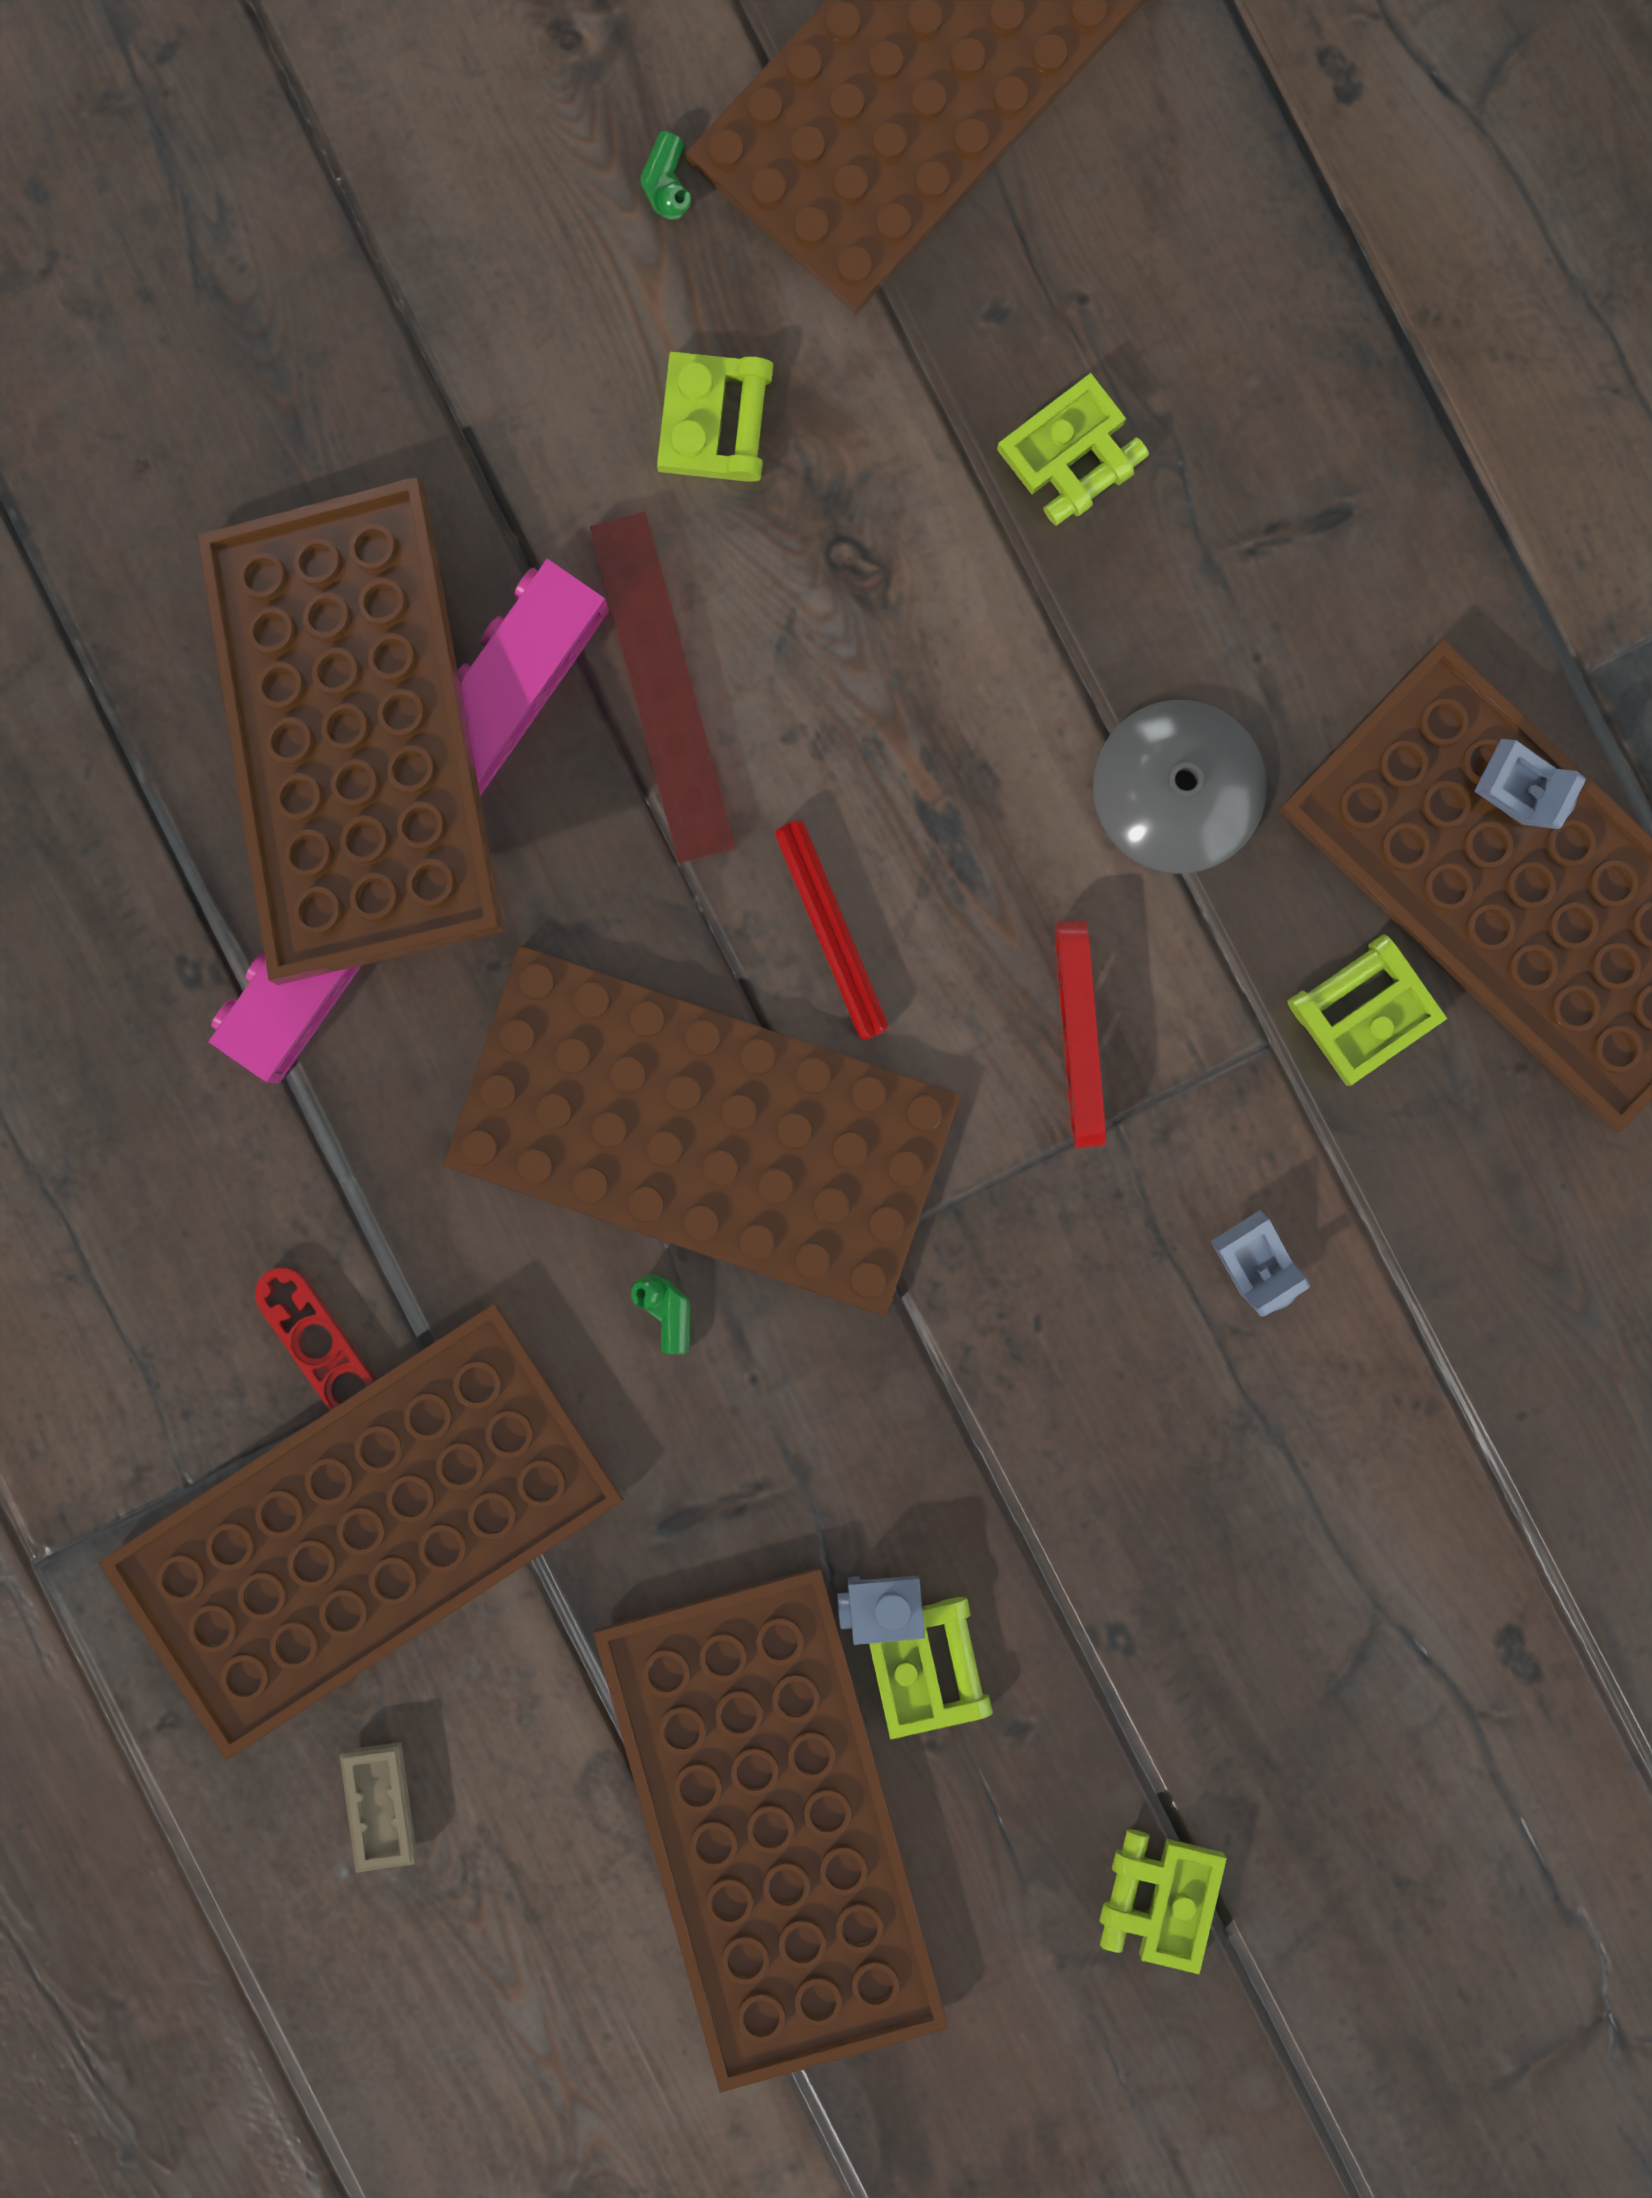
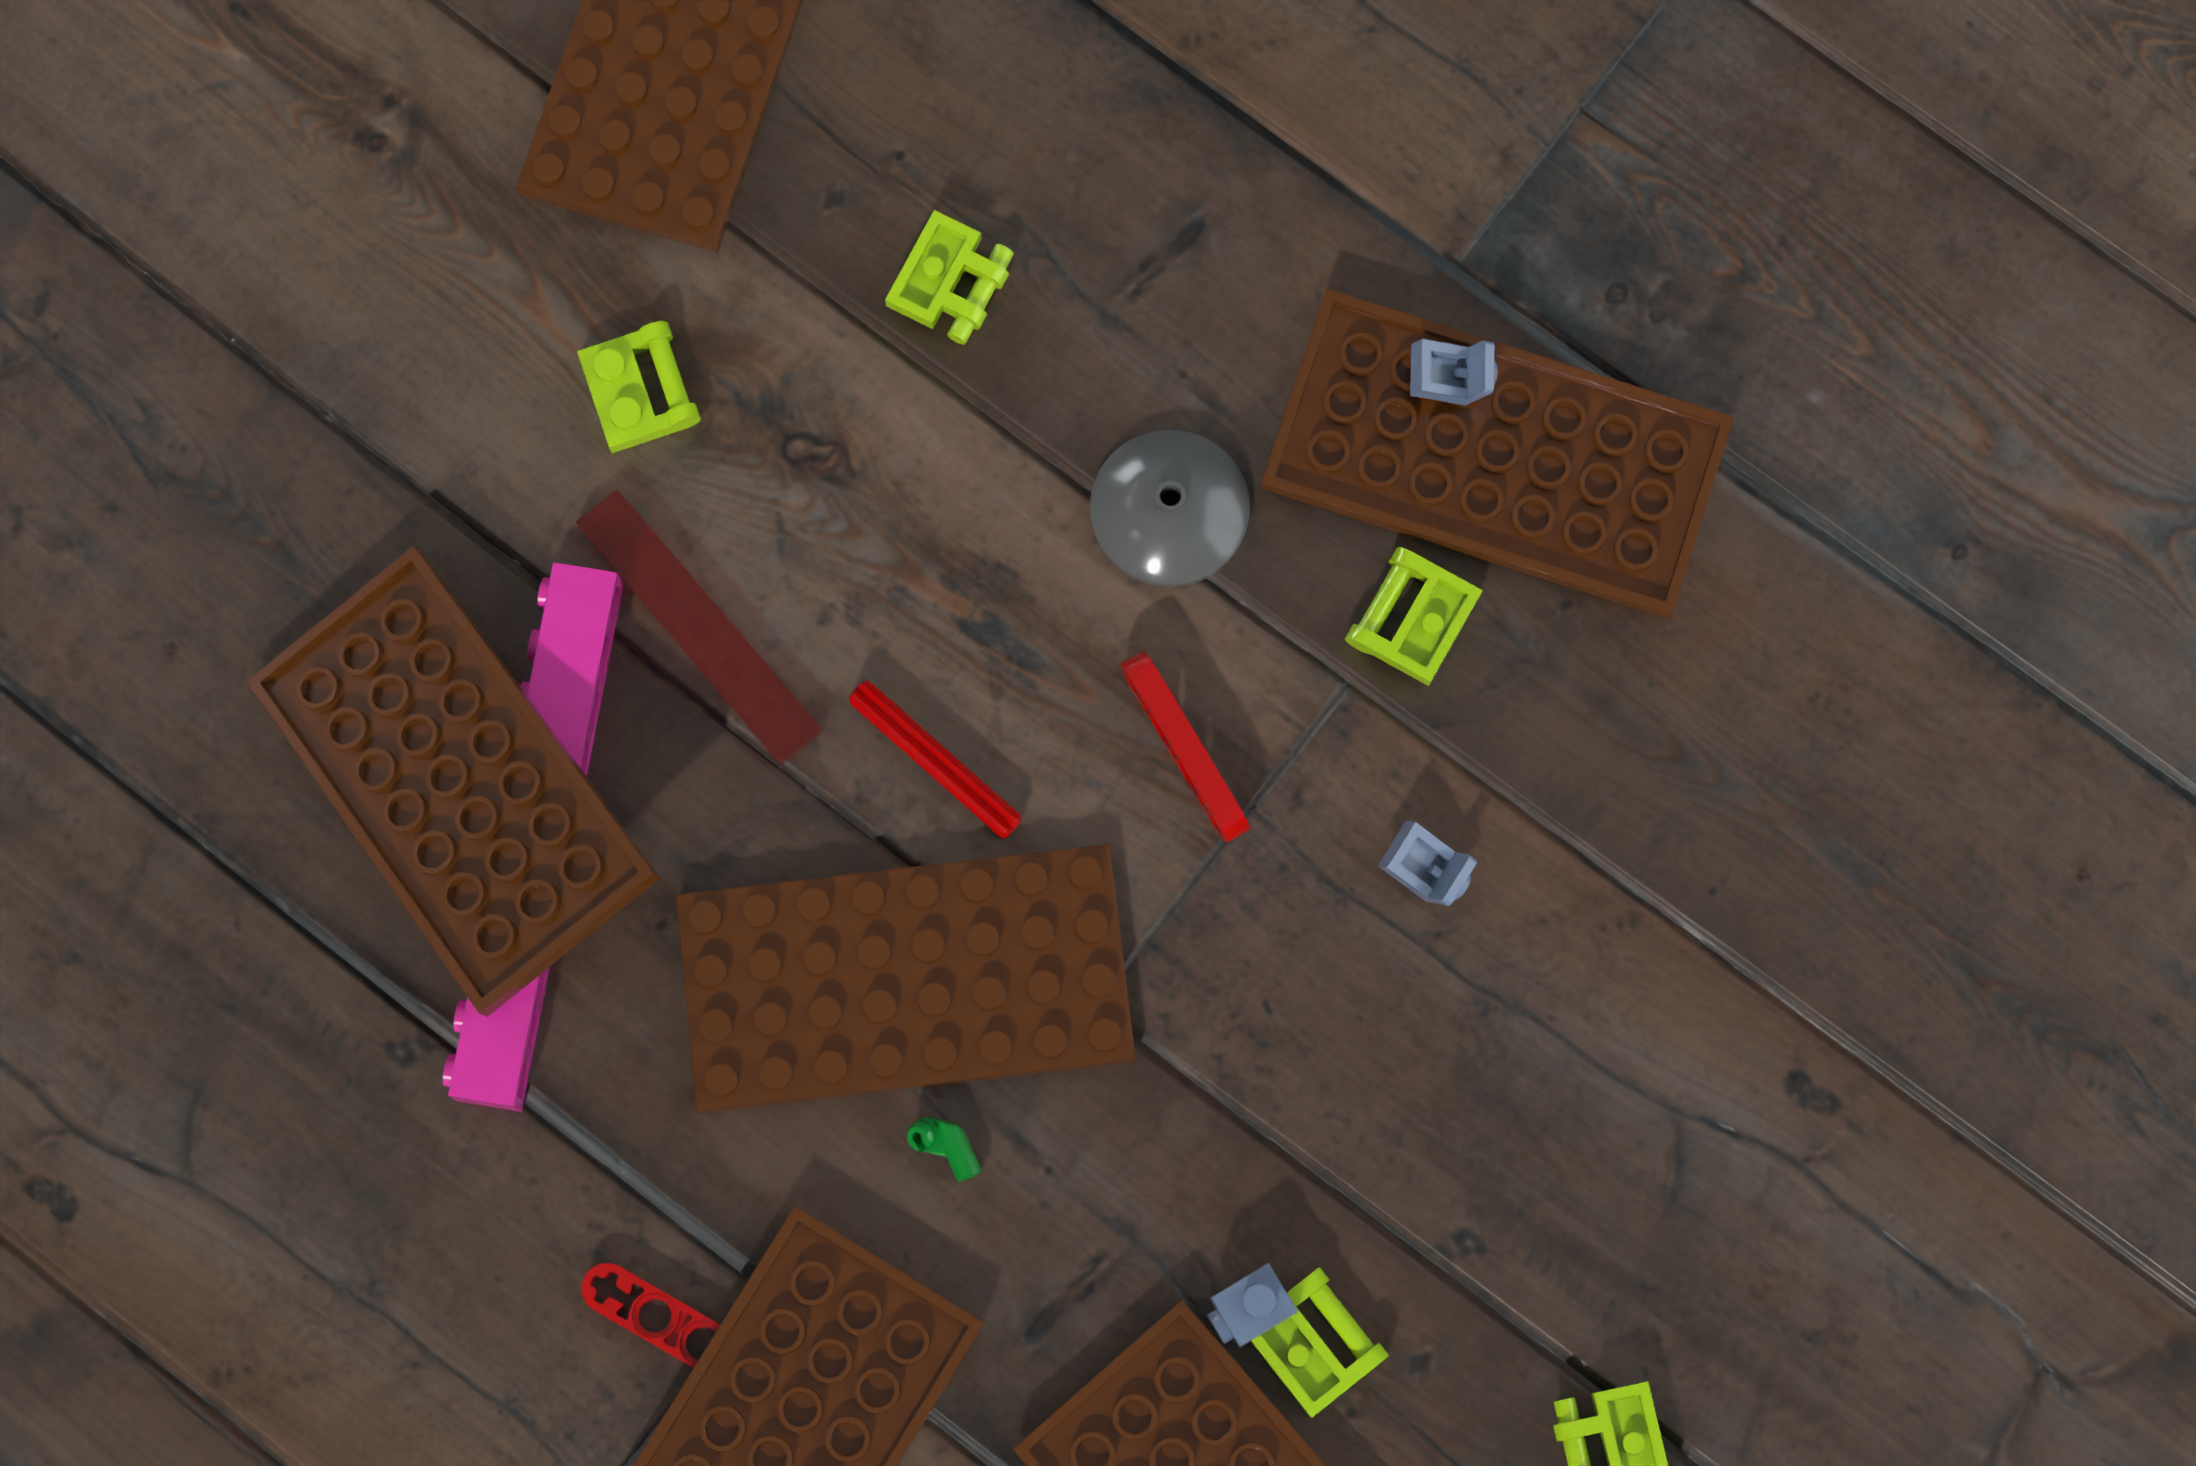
camera: 25 degrees left, 10 degrees down
(660, 181) = (504, 219): green arm -> none

